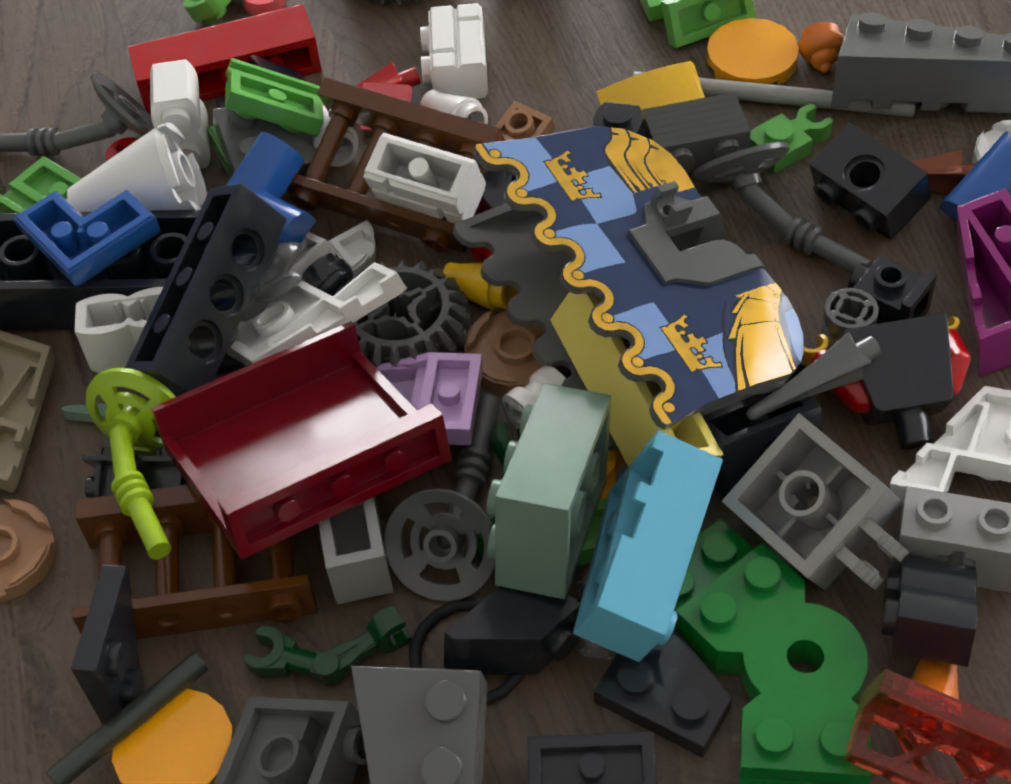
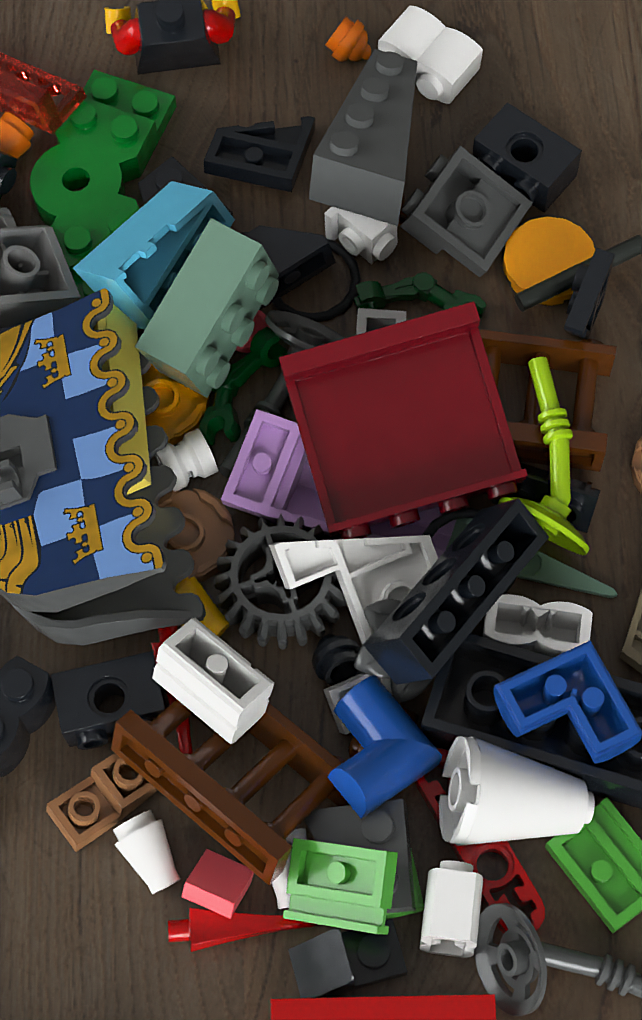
camera: 165 degrees left, 15 degrees up
(356, 247) = (304, 700): white tile -> none
(456, 51) = (113, 949): white brick -> none

